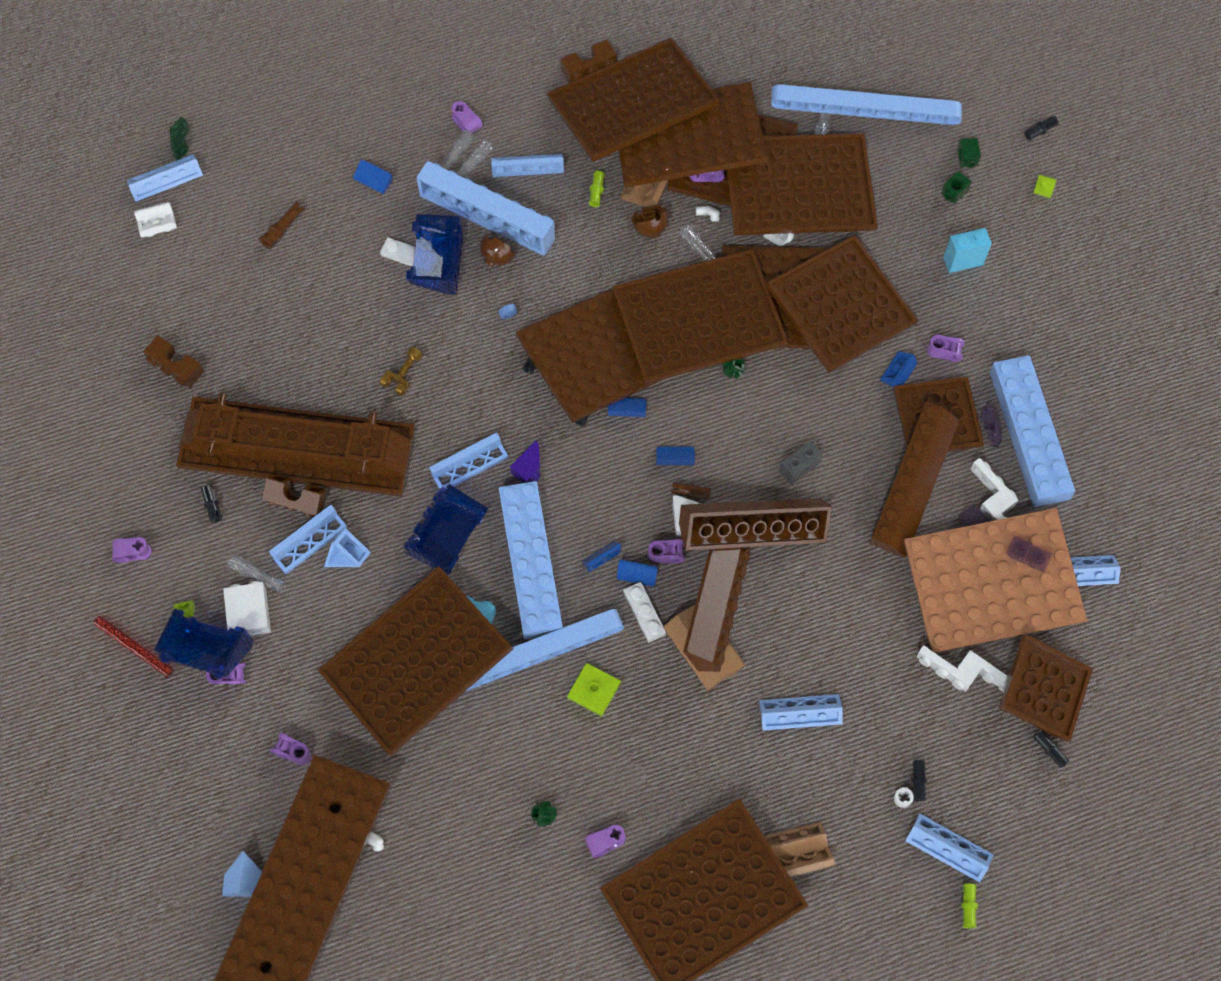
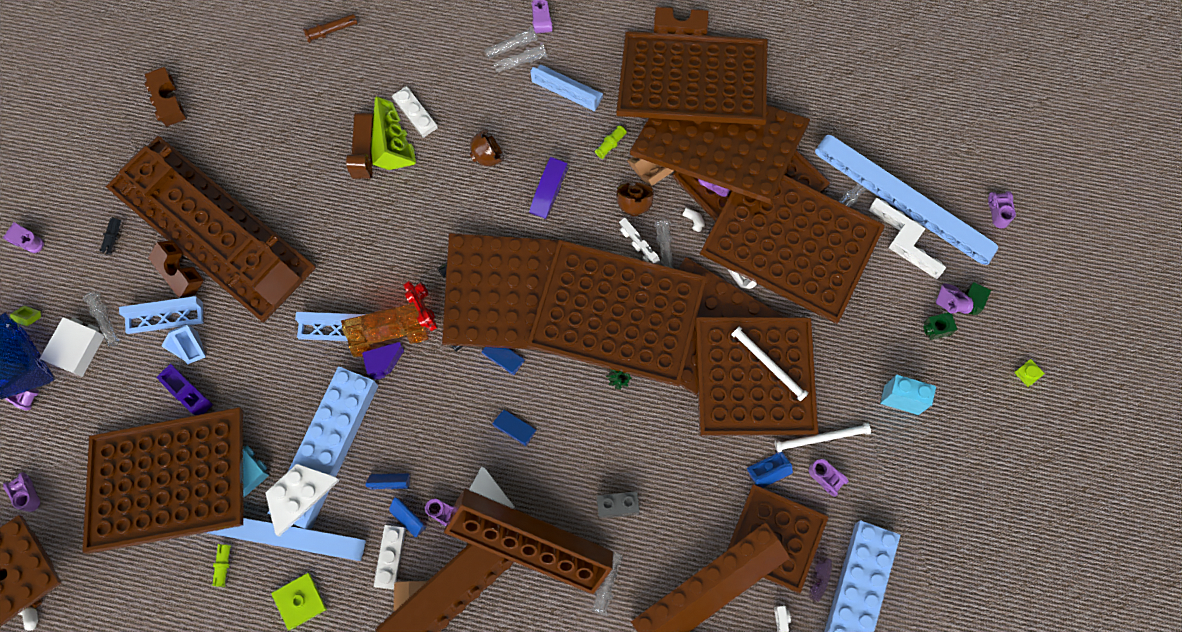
camera: 35 degrees right, 5 degrees up
(372, 176) = (431, 26): blue slope -> none
(374, 587) = (184, 390): none -> dark purple slope
(392, 315) = (360, 161): none -> reddish brown beam
(406, 296) = (389, 141): none -> lime wedge
(413, 355) = (323, 210): pearl gold bar -> none
(436, 253) = (432, 125): clear blue windscreen -> none
(445, 528) = (271, 377): clear blue windscreen -> none
(486, 208) = (501, 106): light blue brick -> none
(508, 311) = (459, 209): medium blue tile -> none
(509, 701) = (221, 565): none -> lime pin
(513, 435) = (382, 326): none -> clear orange bracket
(539, 601) = (296, 495): none -> white wing
(545, 405) = (417, 295): none -> red plant
(571, 252) = (548, 187): none -> dark purple slope
(676, 255) = (639, 244): none -> white wing
(691, 490) = (504, 470): reddish brown pin -> none
(836, 534) = (605, 593): none -> clear pin
(848, 286) = (769, 363): none -> white bar
(886, 135) = (906, 238): none -> white bracket
(894, 347) = (865, 428): none -> white bar
(944, 73) = (1001, 205): none -> medium lavender piece
(954, 161) = (954, 300): none -> medium lavender piece
(1041, 128) = (1063, 314): black axle -> none

